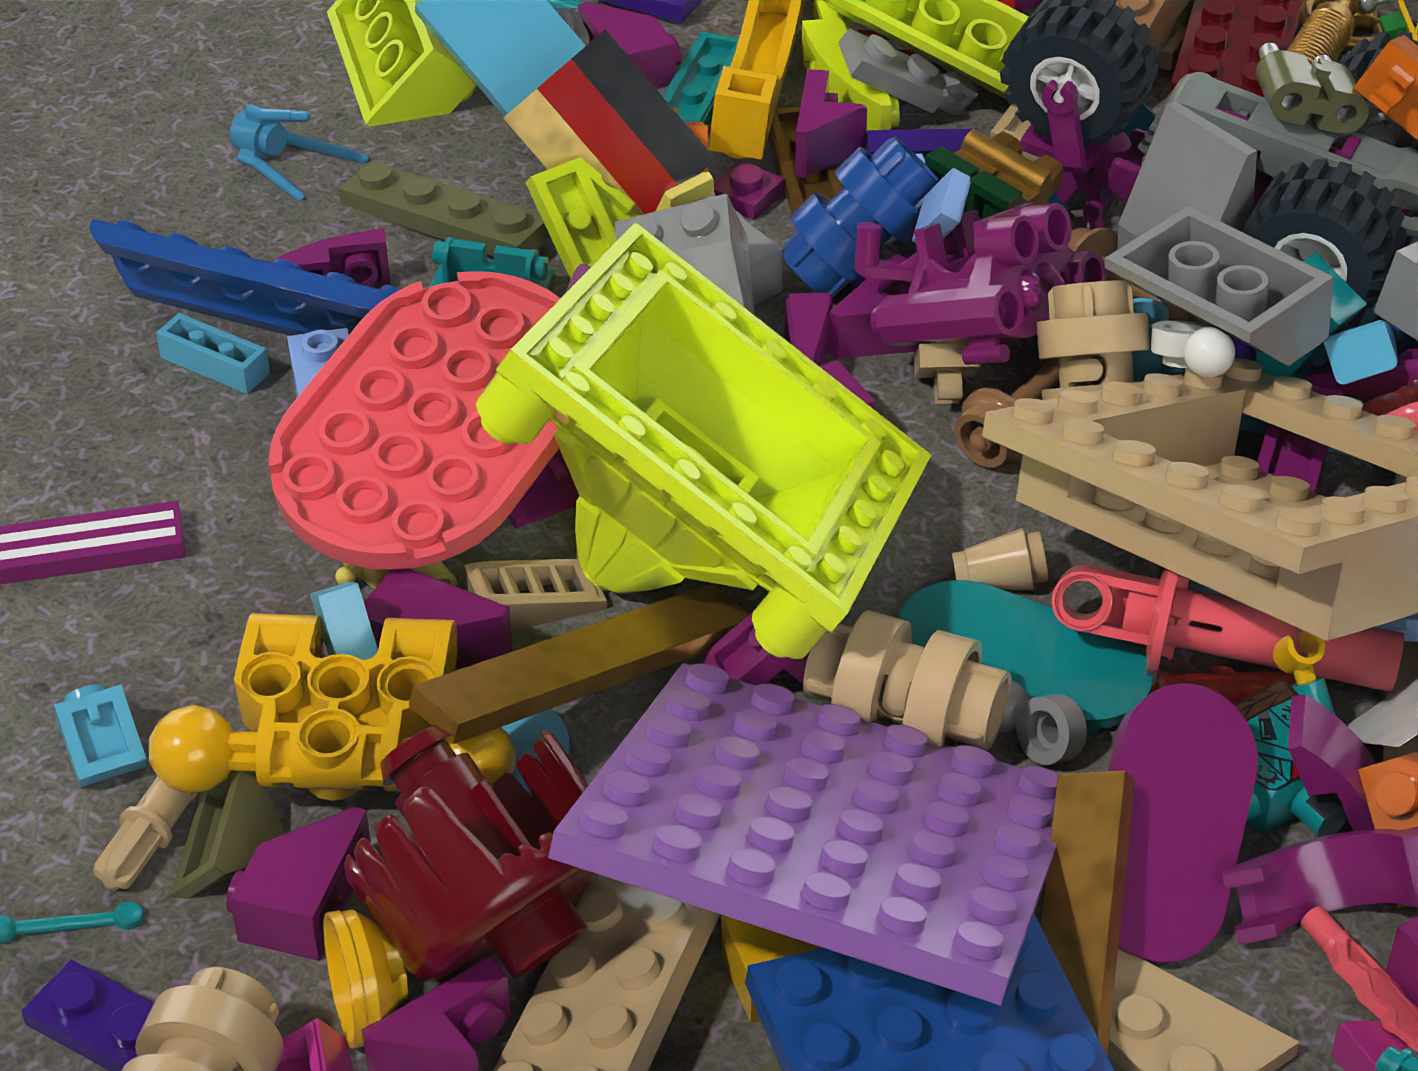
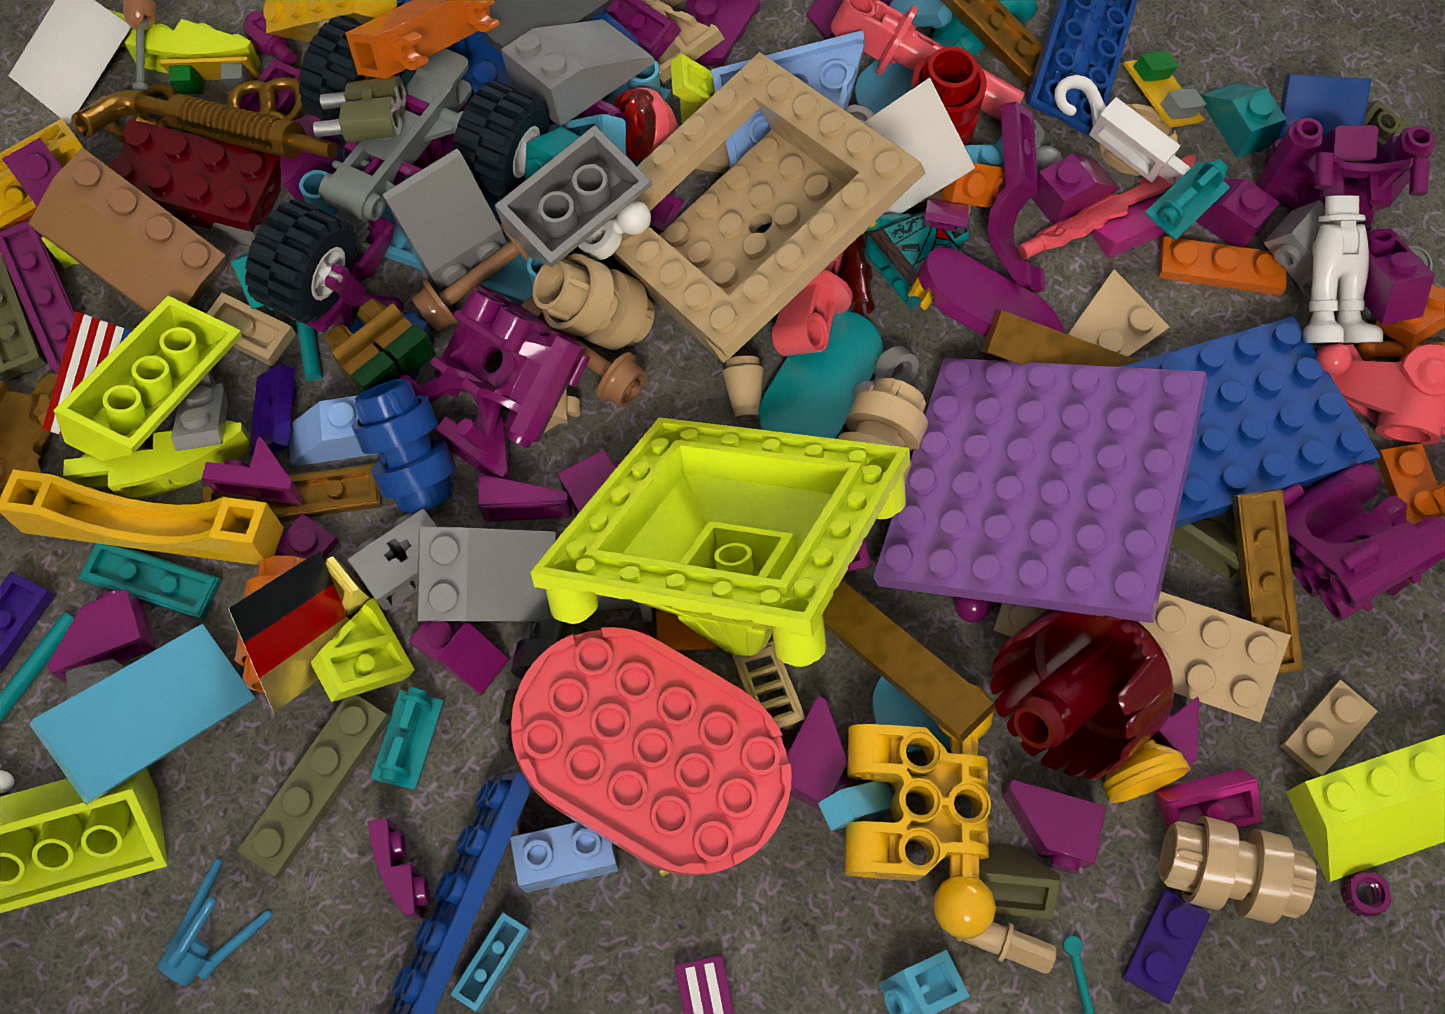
camera: 90 degrees left, 25 degrees up
(945, 202) = (440, 377): light blue tile -> none

